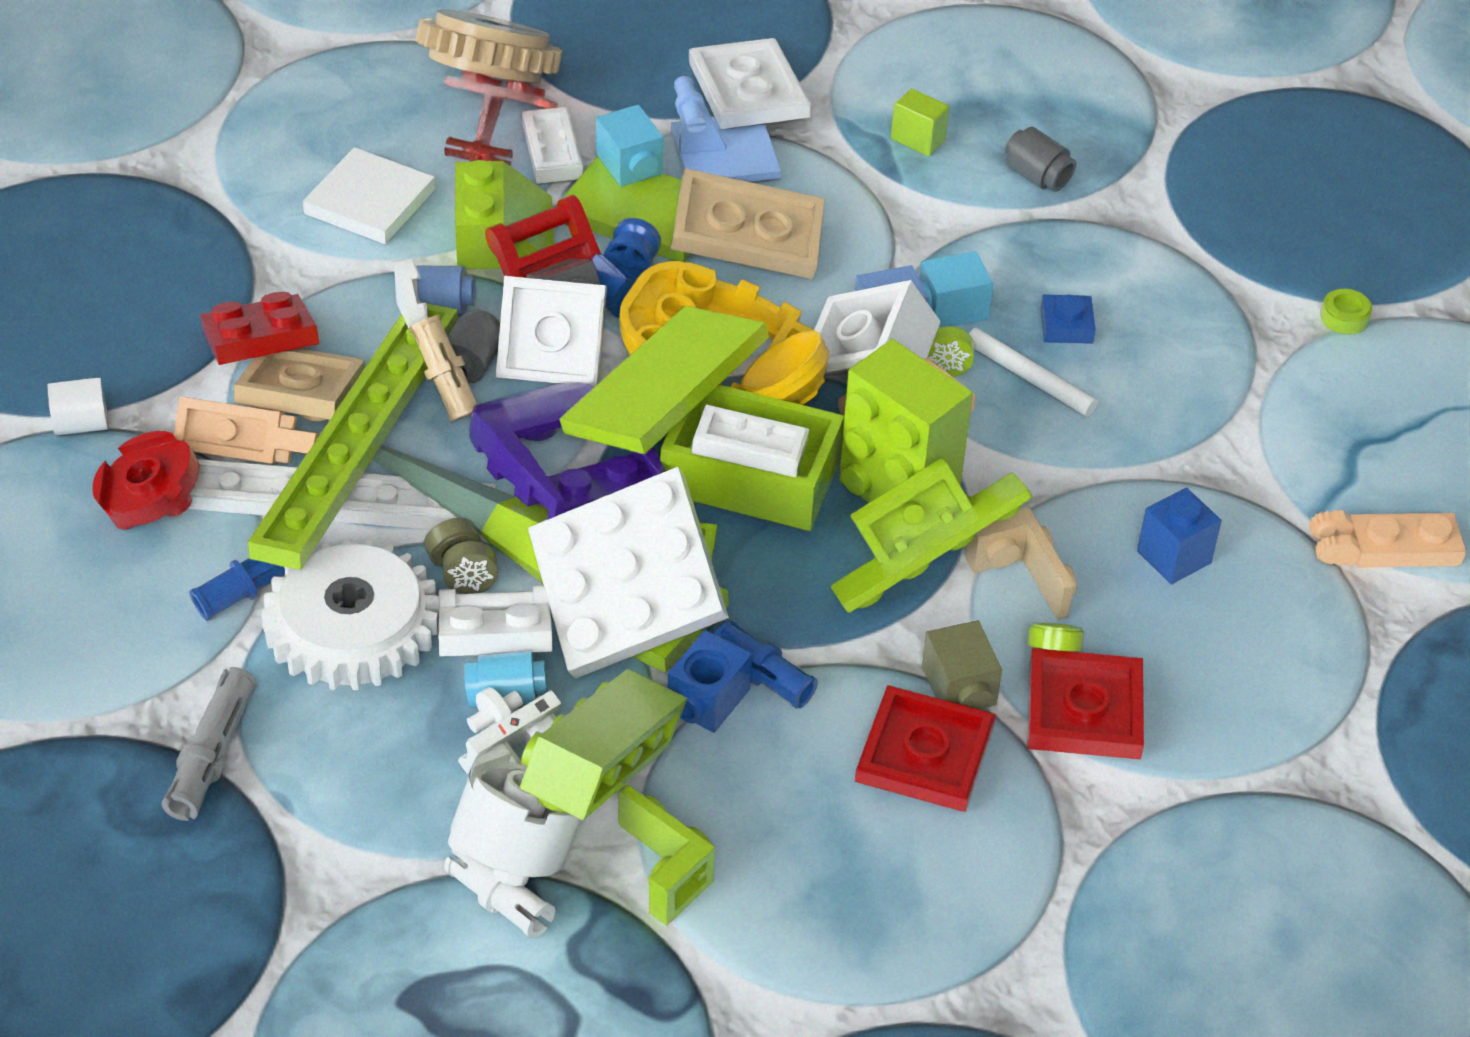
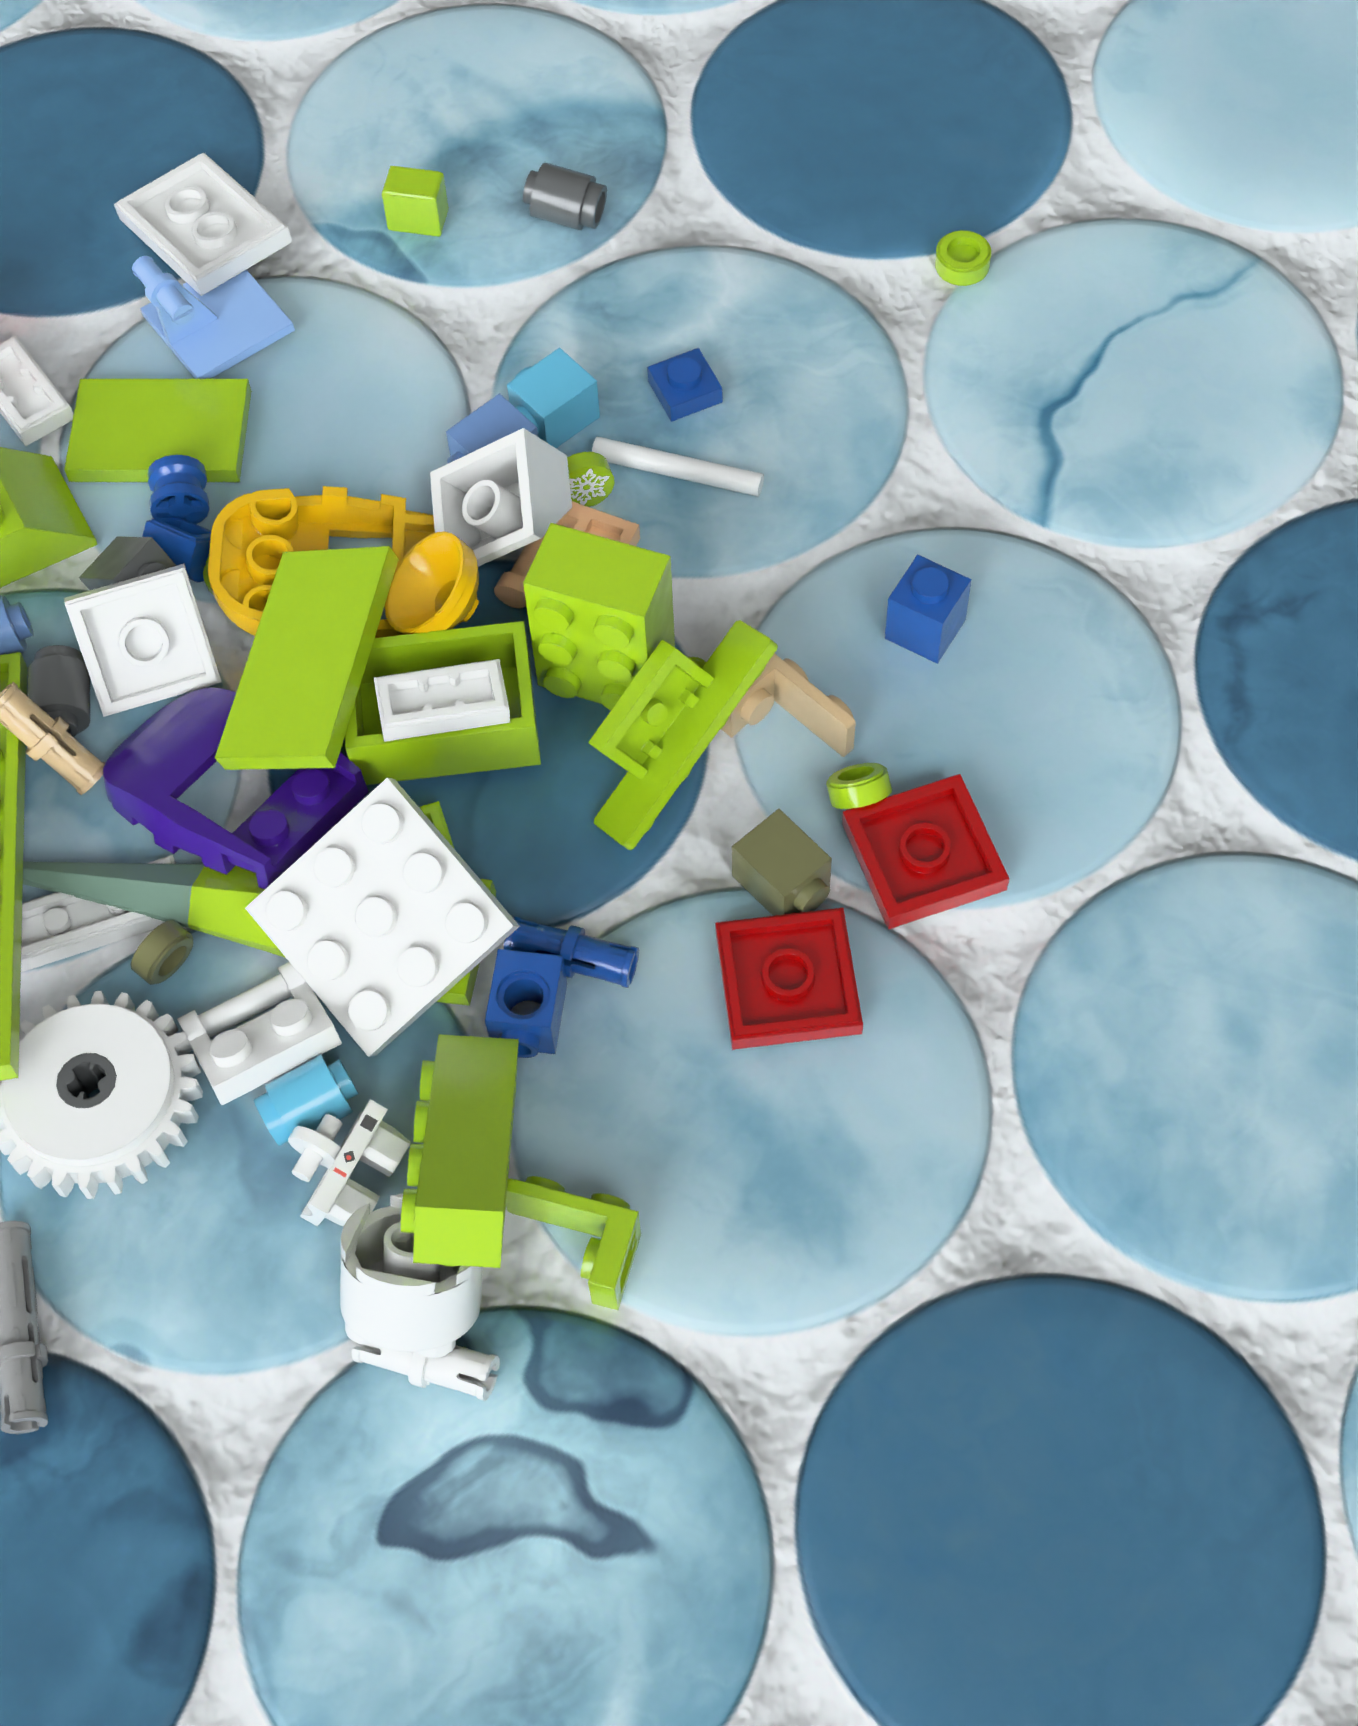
camera: 20 degrees left, 15 degrees up
(470, 567) = (197, 975): olive tile -> none
(568, 212) = (119, 517): red plate -> none
(629, 145) = (113, 362): medium azure brick -> none
(748, 223) = (291, 408): tan plate -> none
(1388, 539) = (1131, 517): light nougat hinge -> none

